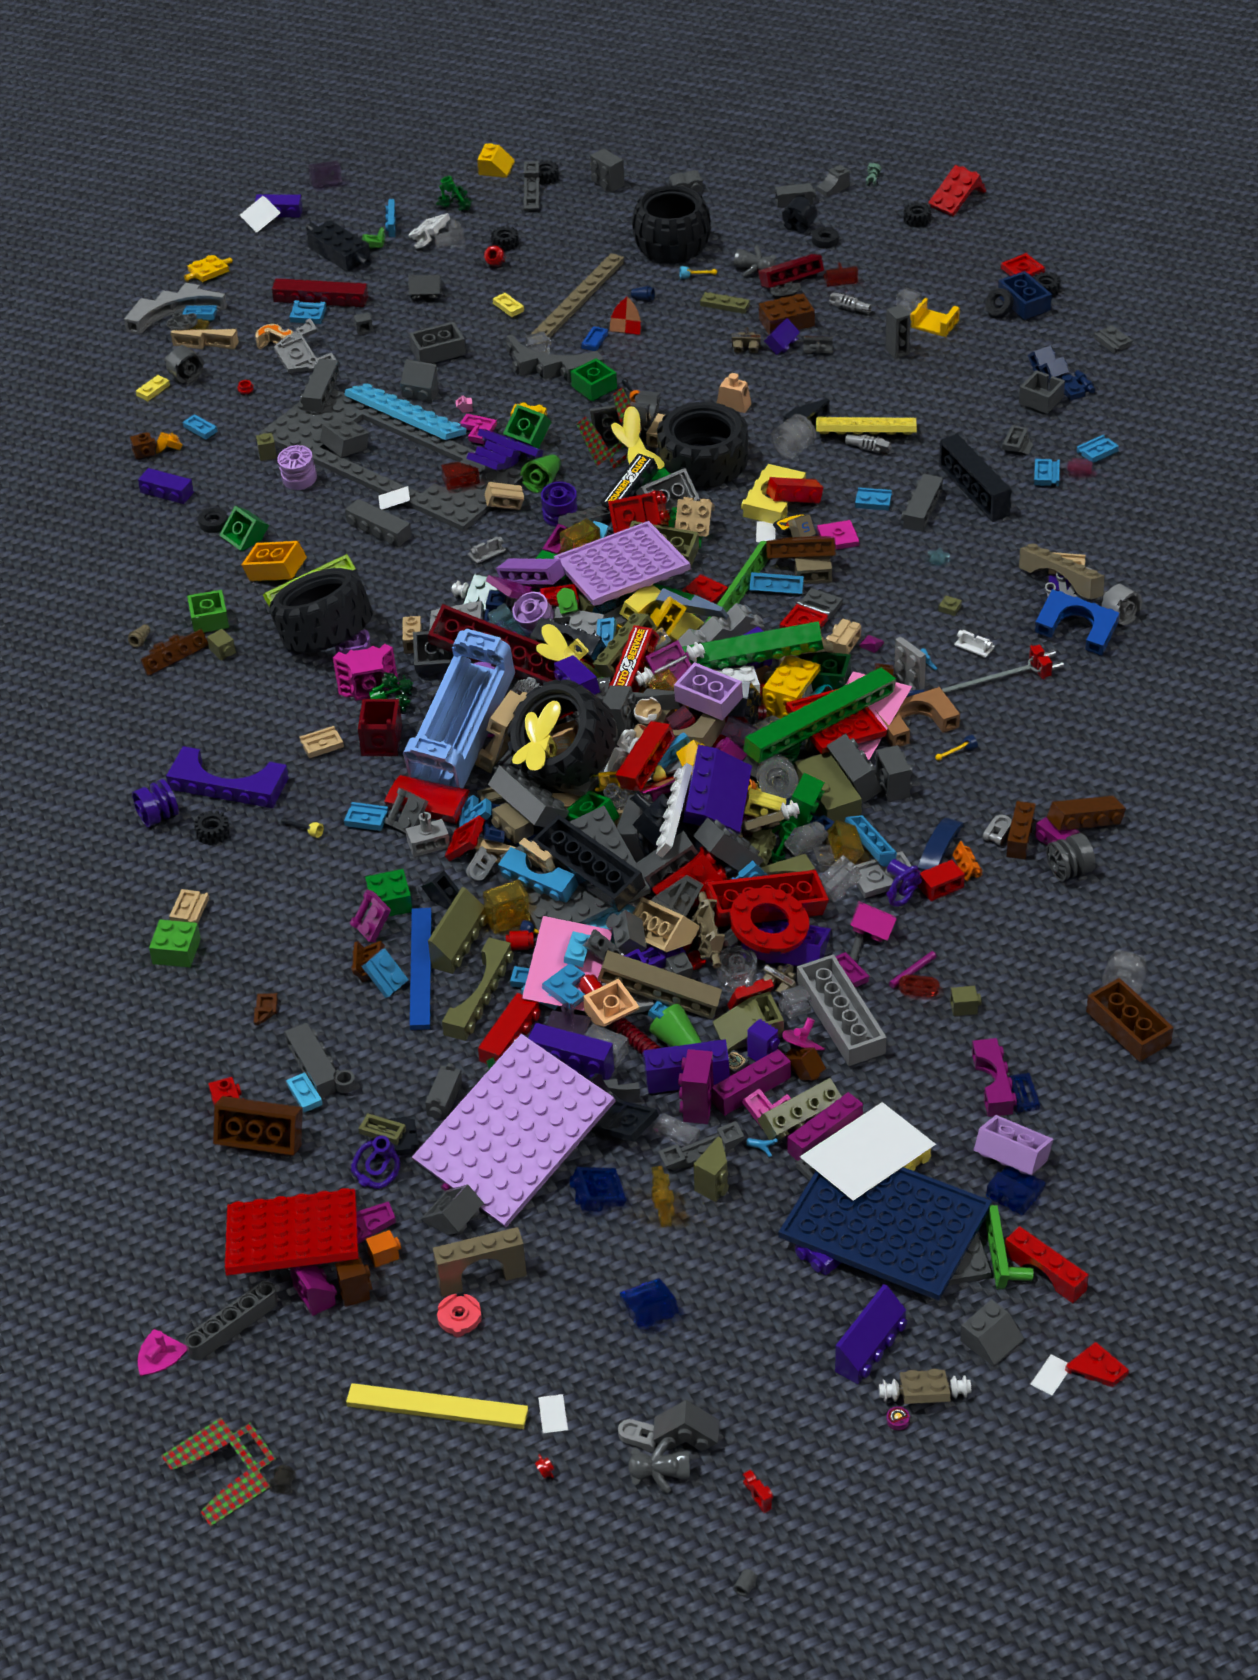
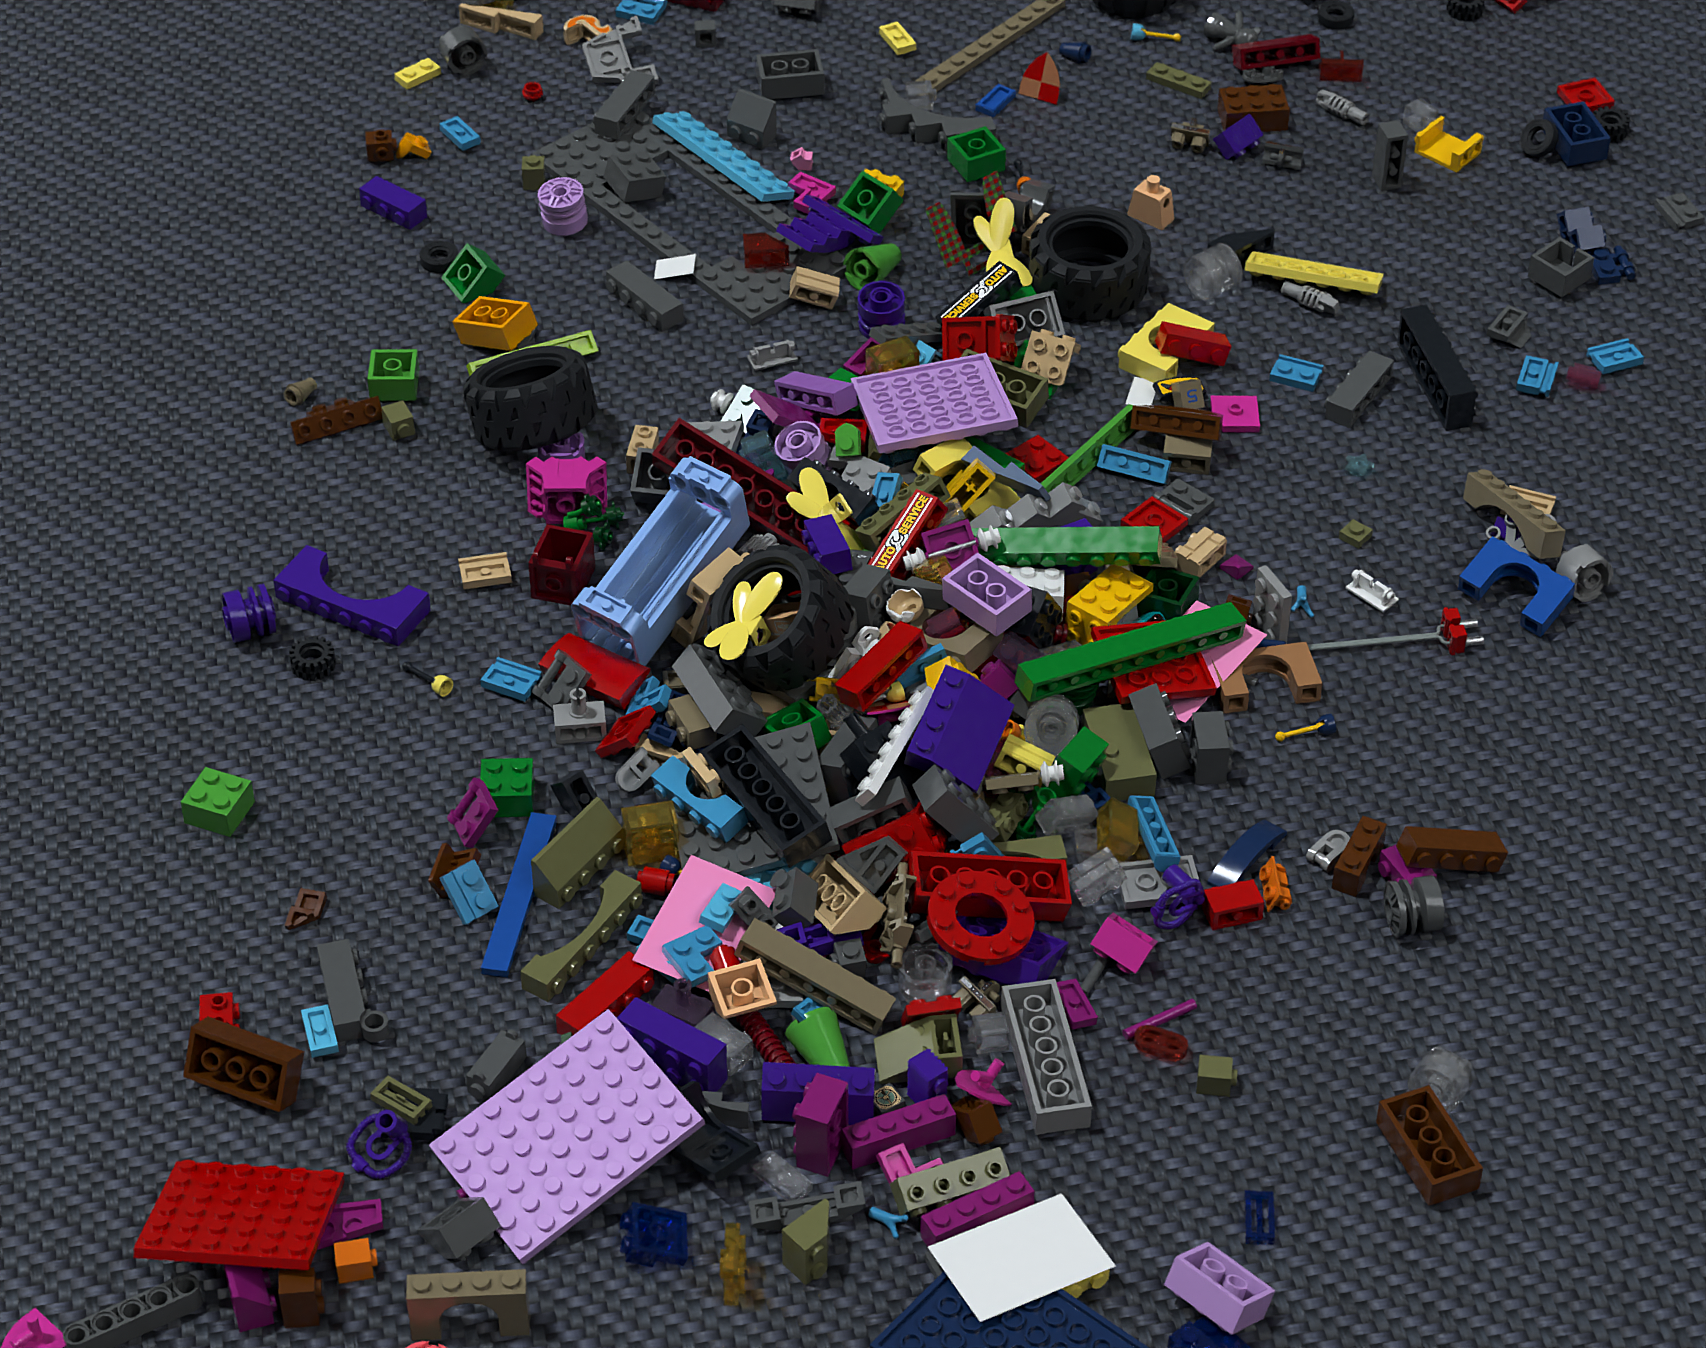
camera: 10 degrees right, 0 degrees up
(189, 906) = (251, 757): tan plate -> none
(988, 1058) = (1221, 1214): magenta arch -> none

